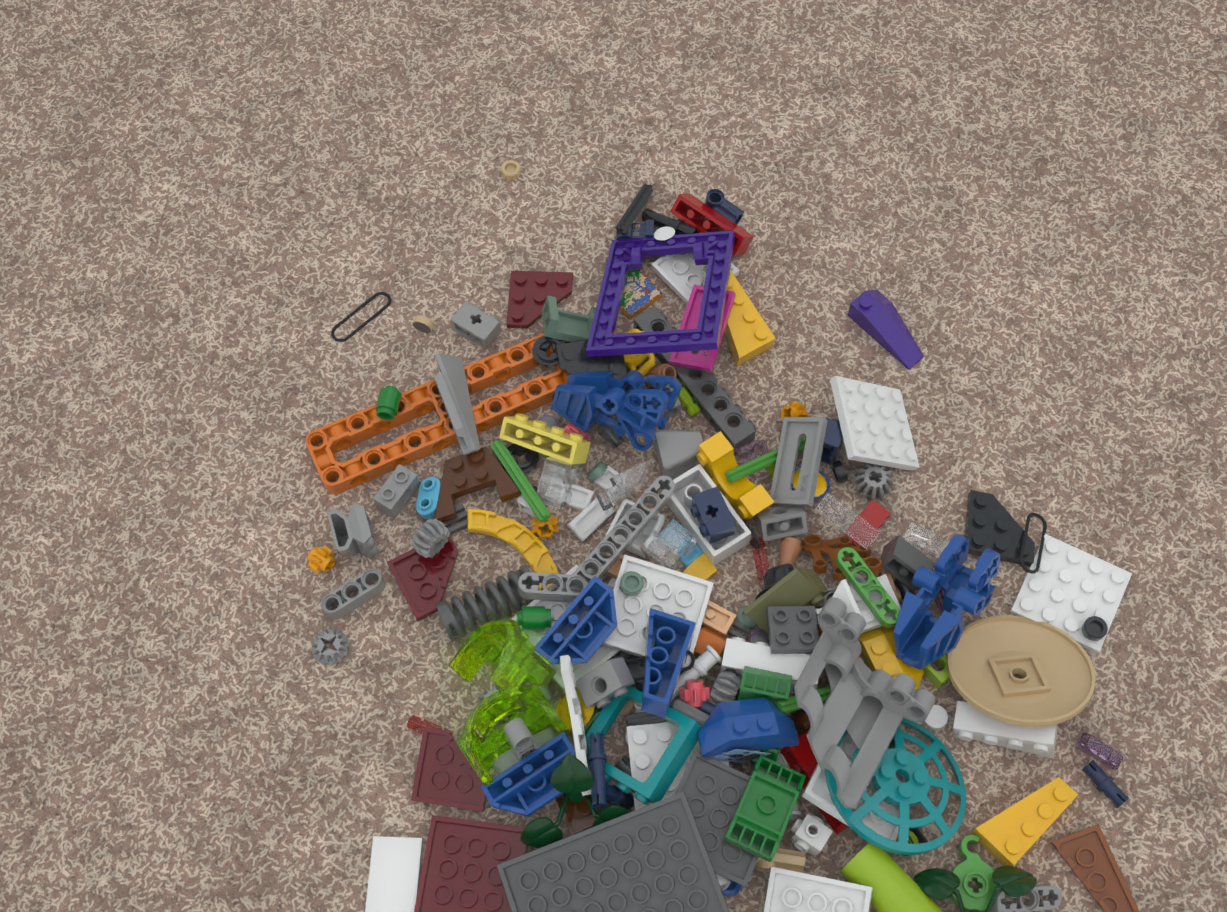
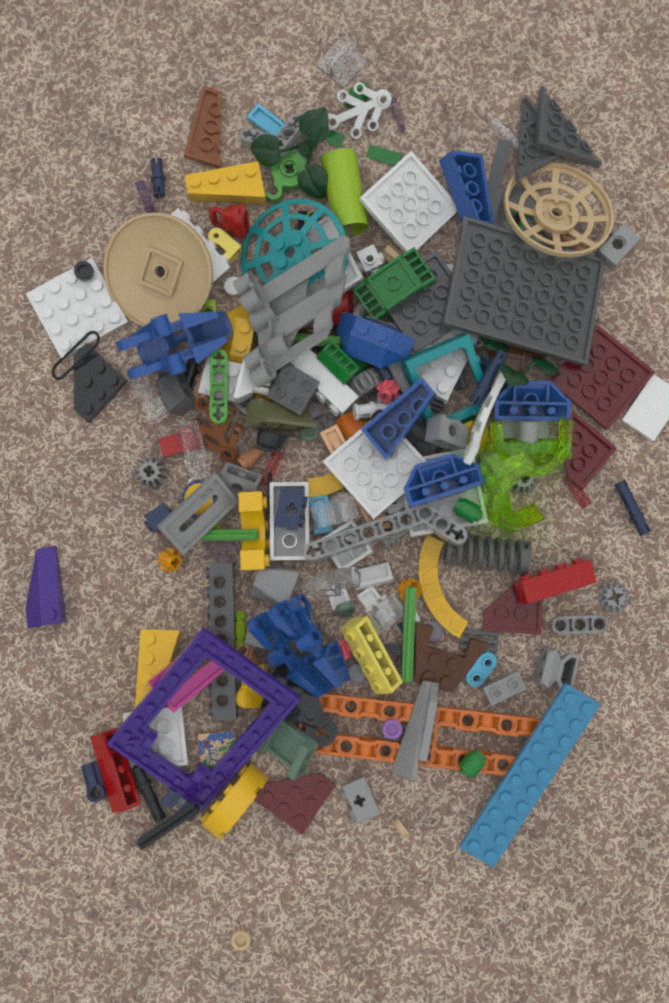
camera: 155 degrees left, 20 degrees up
(321, 559) = (588, 667): light orange gear -> none
(326, 430) = (529, 774): none -> dark azure plate
(350, 742) = (634, 511): none -> dark blue pin
(366, 322) = (442, 862): black piece -> none
(401, 617) = (554, 581): none -> red brick
(430, 538) = (502, 627): light grey gear -> none
(483, 390) = (392, 729): none -> medium lavender tile
(496, 505) = (437, 631): none -> tile
(587, 261) = (236, 801): none -> yellow brick
(631, 583) = (383, 492): sand green tile -> none
(664, 233) = (160, 784): white sticker -> none
(839, 471) = (169, 495): black tile -> none
(874, 424) = (120, 510): white plate -> none
(978, 755) = (225, 244): none -> light yellow leg
(989, 782) = (233, 220): none -> red piece

